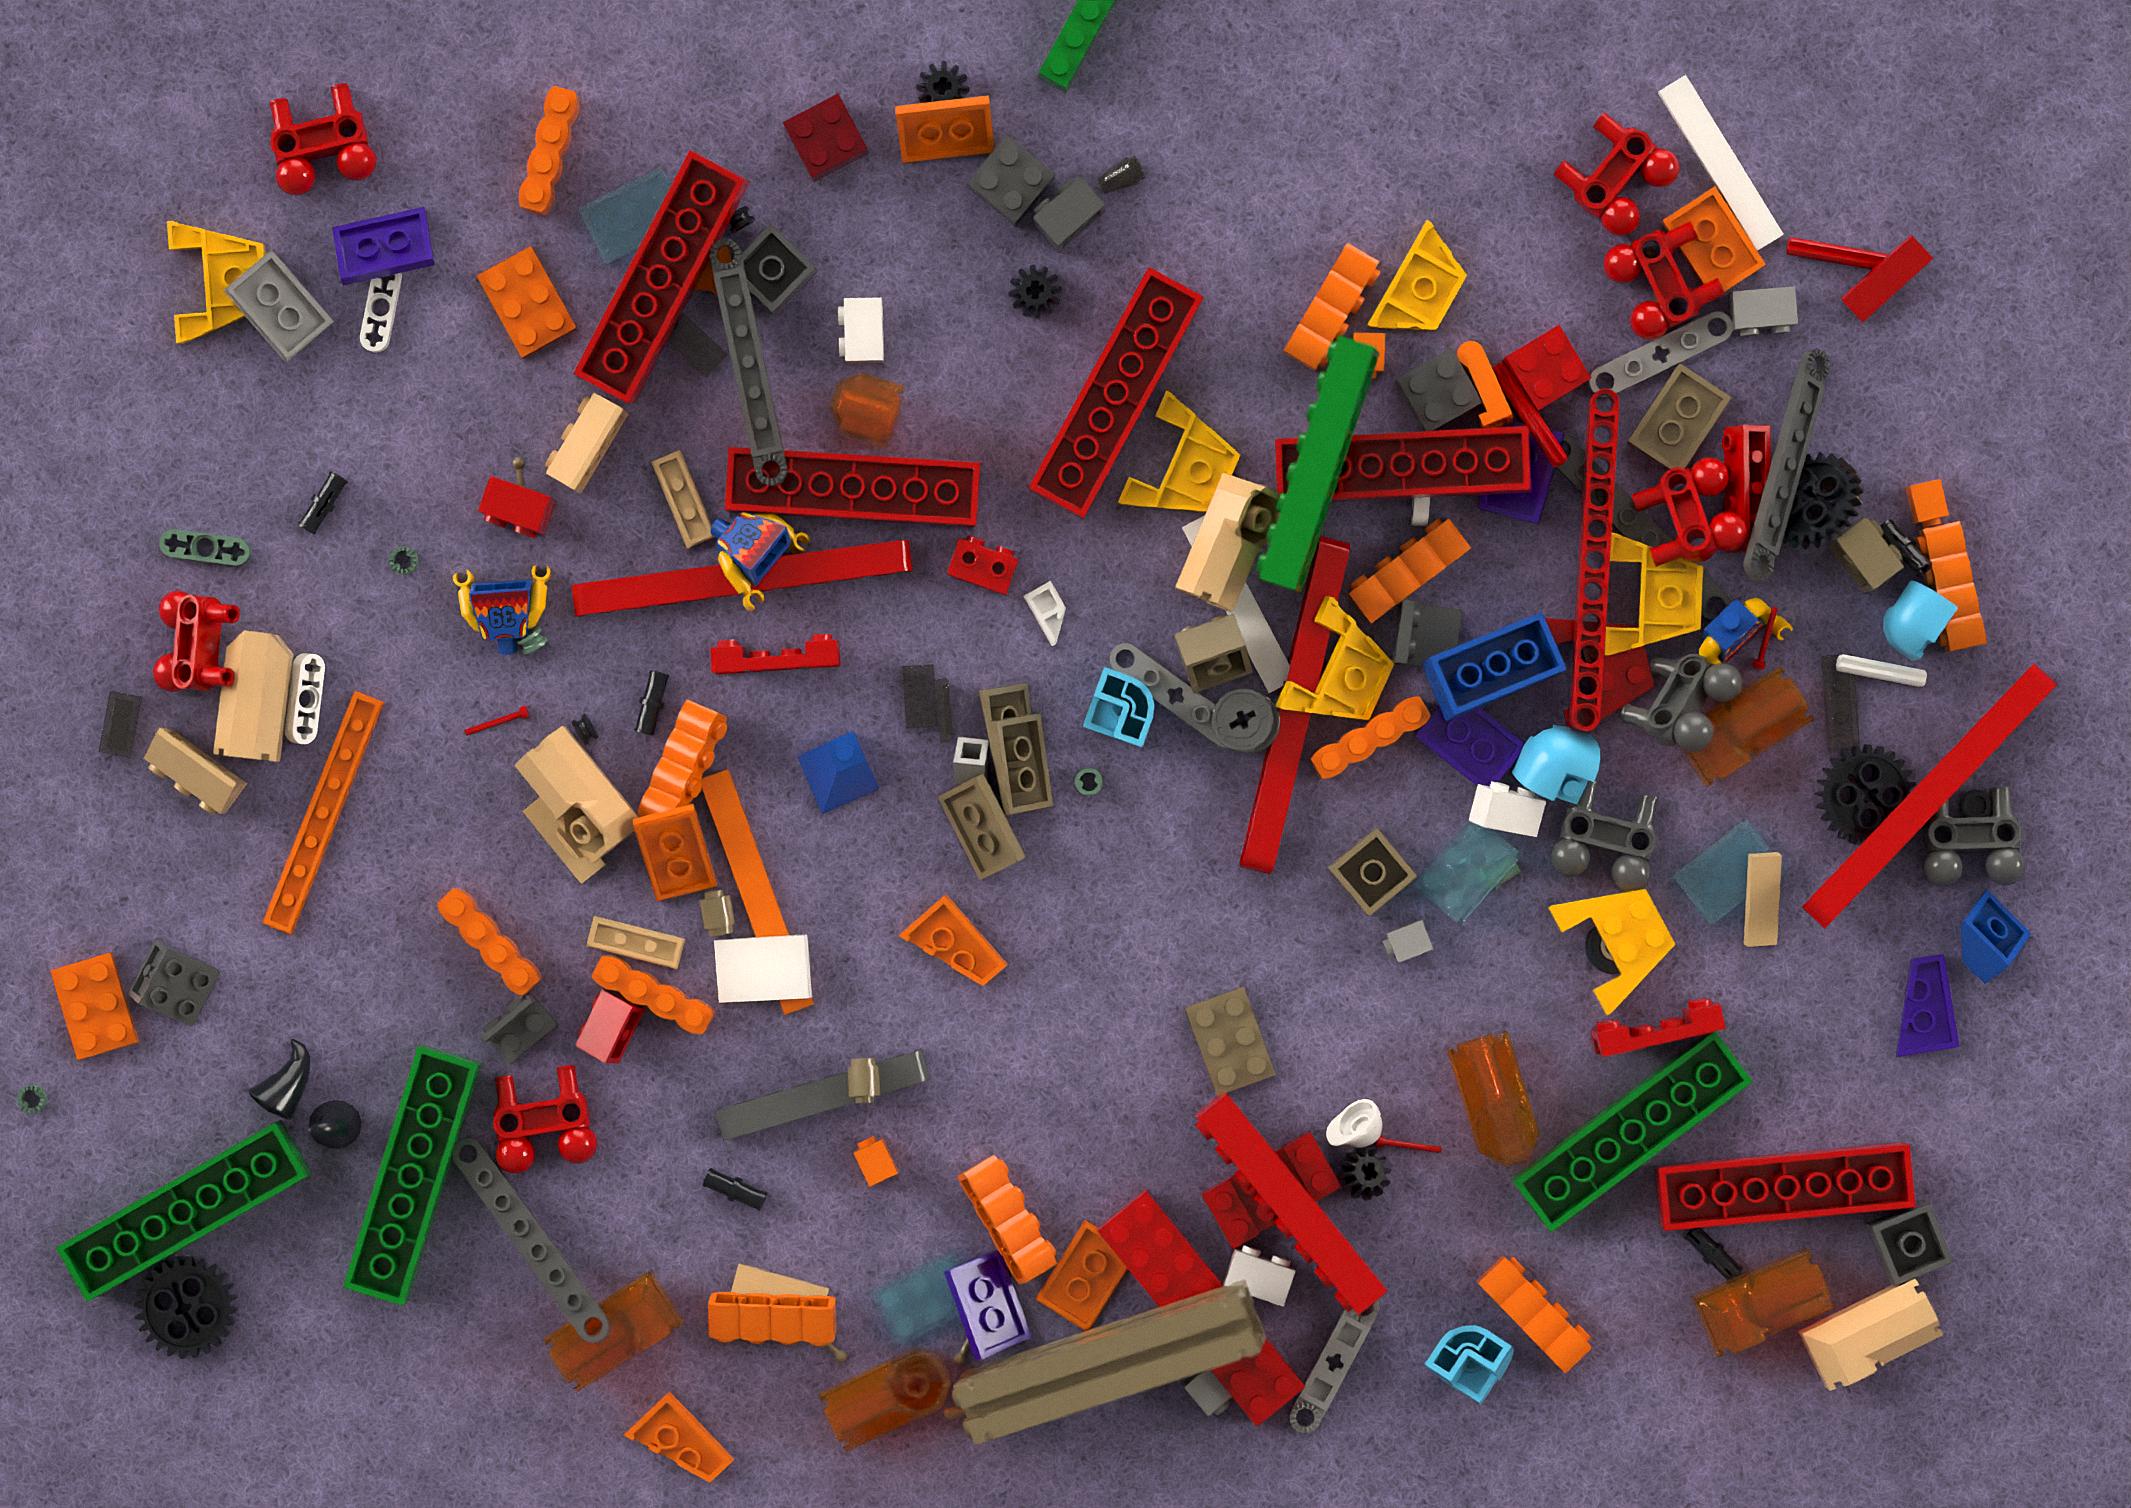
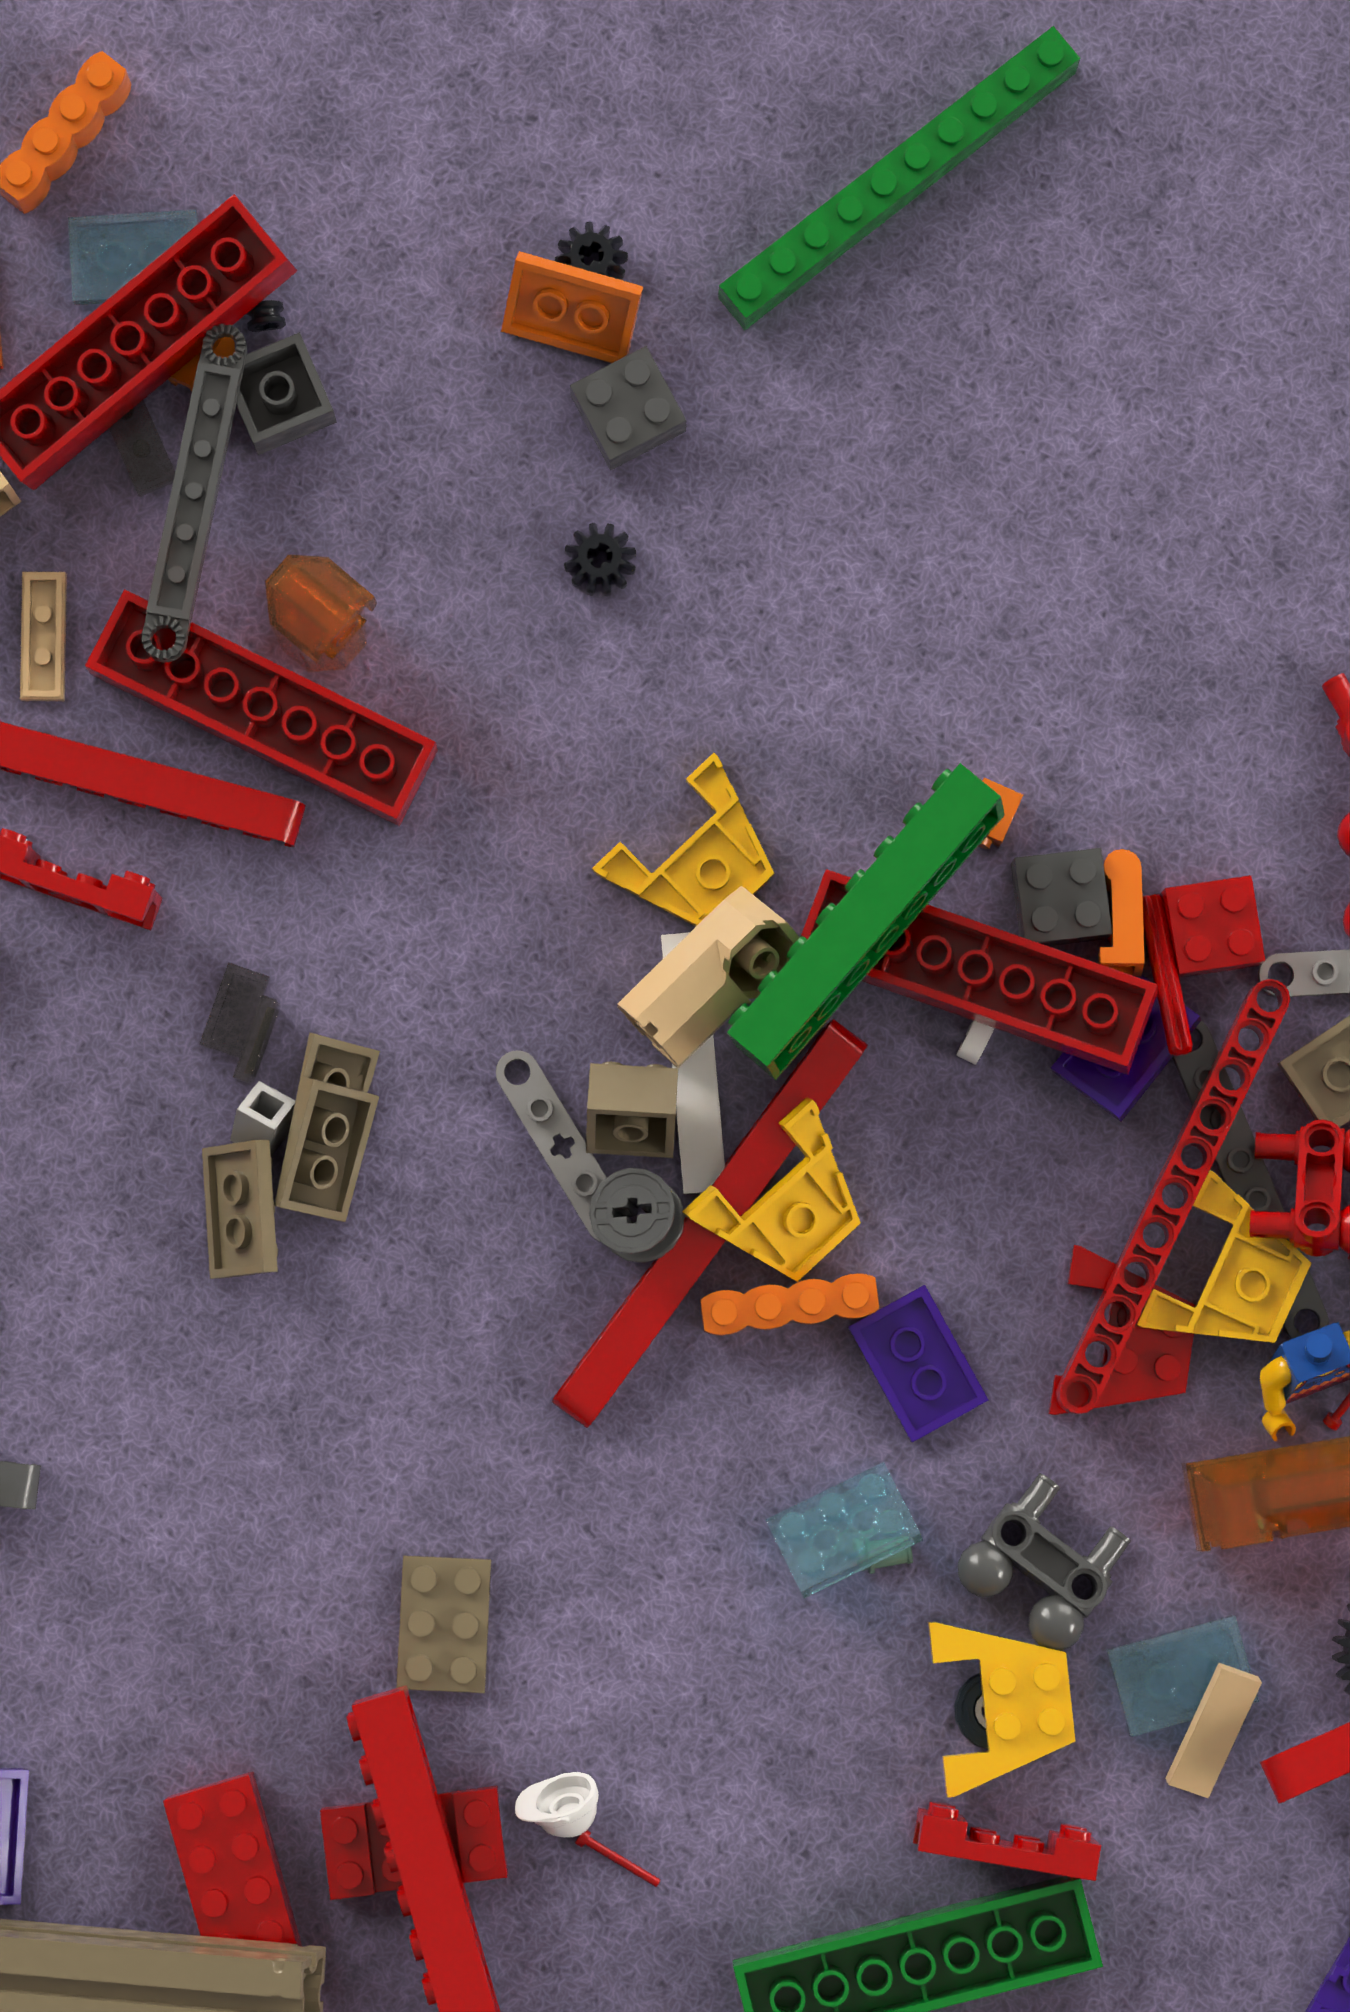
camera: 15 degrees right, 5 degrees down
(751, 549) = (99, 729): torso -> none
(826, 137) = (417, 258): dark red brick -> none
(838, 772) = (89, 1063): blue slope -> none
(863, 330) = (360, 517): white brick -> none
(956, 941) = (145, 1343): orange wing -> none
(982, 565) = (386, 877): red brick -> none
(1007, 1220) = (54, 1735): orange brick -> none
(1047, 609) = (444, 968): white tile -> none
(1068, 213) = (682, 476): dark grey brick -> none
(1083, 1278) = (120, 1856): orange tile -> none
(1098, 779) = (390, 1208): sand green bush -> none
(1116, 393) = (647, 728): red brick -> none
(1121, 708) = (483, 1131): medium azure brick -> none
(1122, 175) = (772, 460): clear smoke cone -> none
(1265, 1277) = (353, 1951): white brick -> none
(1331, 307) = (971, 732): orange brick -> none
(1372, 872) = (719, 1480): dark tan brick -> none
(1372, 1169) = (558, 1872): black gear -> none
(1407, 941) = (727, 1590): light grey brick -> none
(1409, 570) = (928, 1111): orange brick -> none
(1421, 286) = (1094, 757): yellow wing -> none
(1424, 632) = (917, 1205): dark grey bracket -> none
(1493, 666) = (986, 1279): blue brick -> none
(1494, 1098) = (755, 1845): clear orange brick -> none
(1507, 809) = (928, 1473): white brick -> none
(1558, 763) = (1019, 1440): medium azure brick -> none
(1676, 710) = (1199, 1435): dark grey piece -> none

